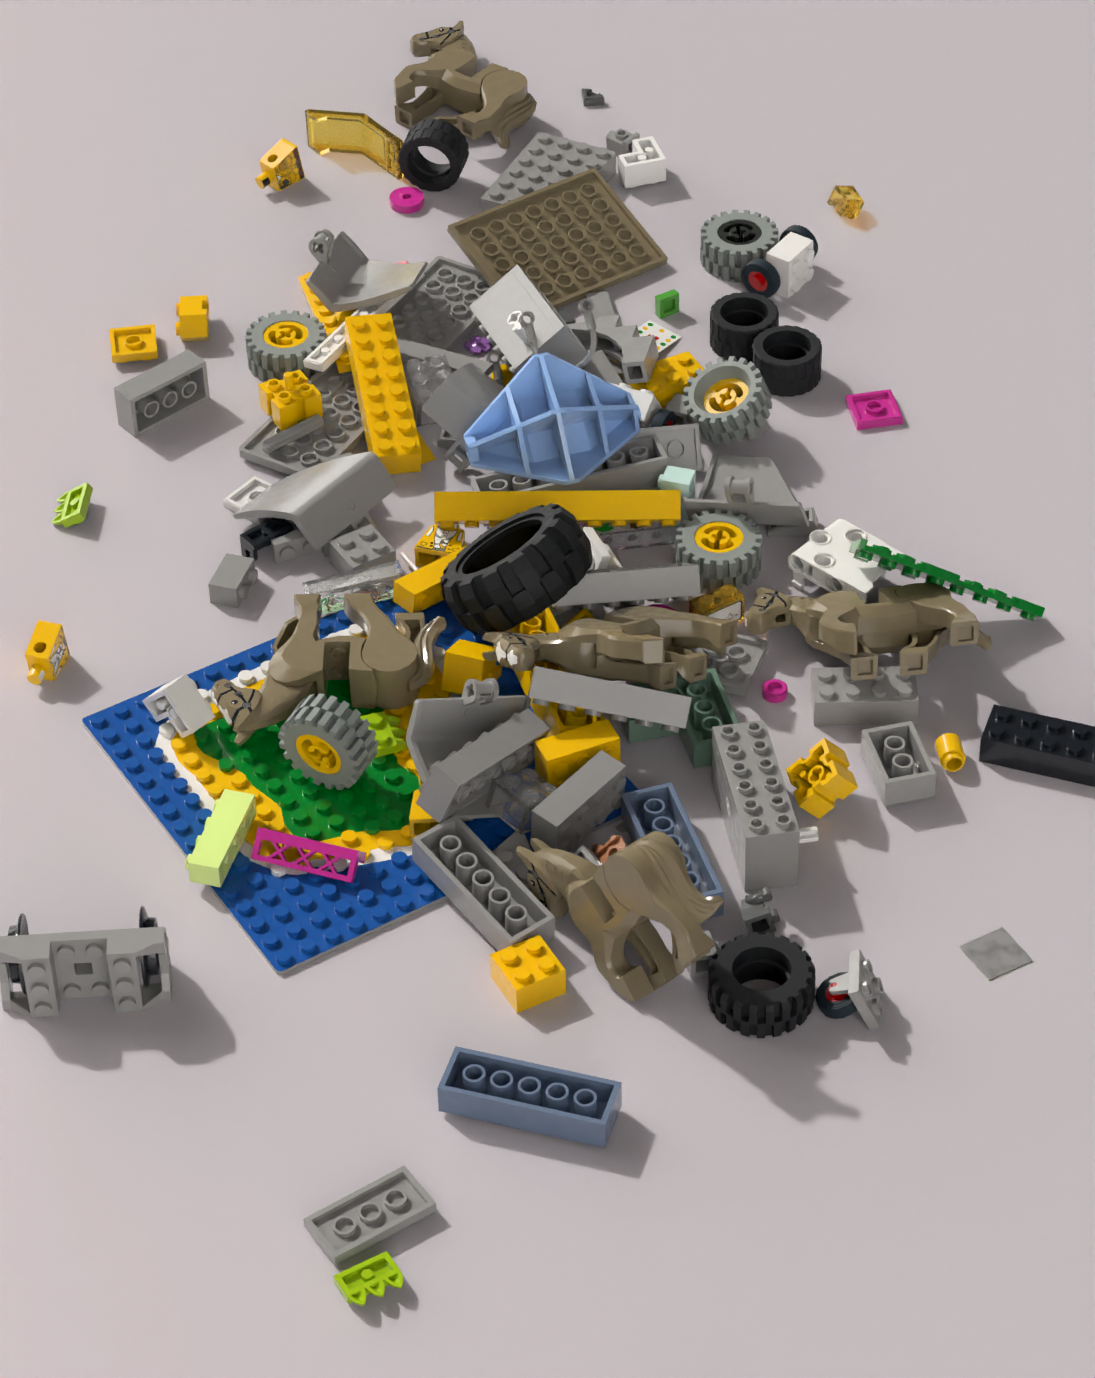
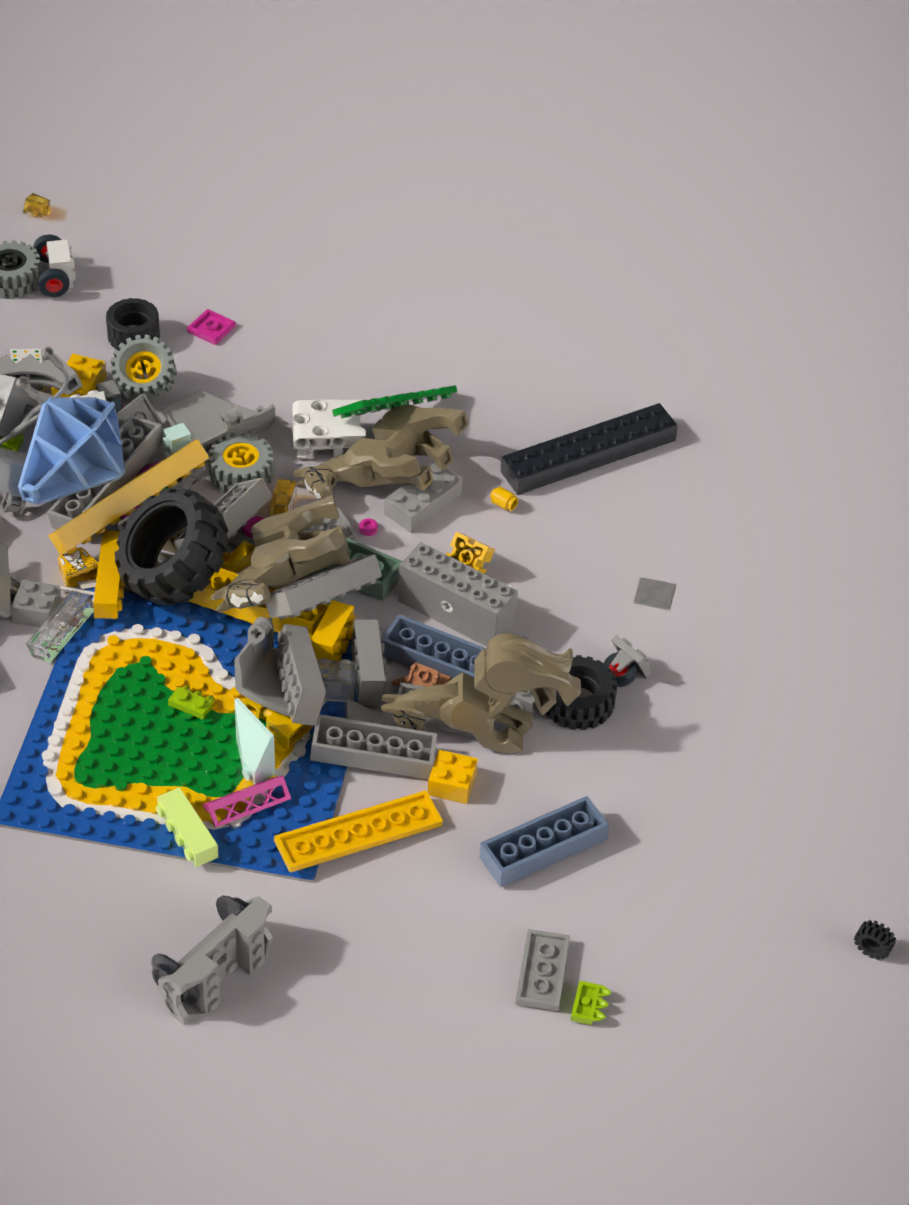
camera: 50 degrees left, 5 degrees up
(181, 704) = (57, 765): white brick -> none
(328, 741) = (190, 724): light grey wheel -> none
(363, 804) = (254, 745): none -> light aqua slope
(372, 956) = (357, 831): none -> yellow plate
(381, 669) = (149, 662): dark tan animal -> none
(466, 662) = (198, 627): yellow plate -> none
(666, 303) = (10, 332): bright green plate -> none
(737, 322) = (80, 306): black tyre -> none
(898, 763) = (490, 522): light grey brick -> none

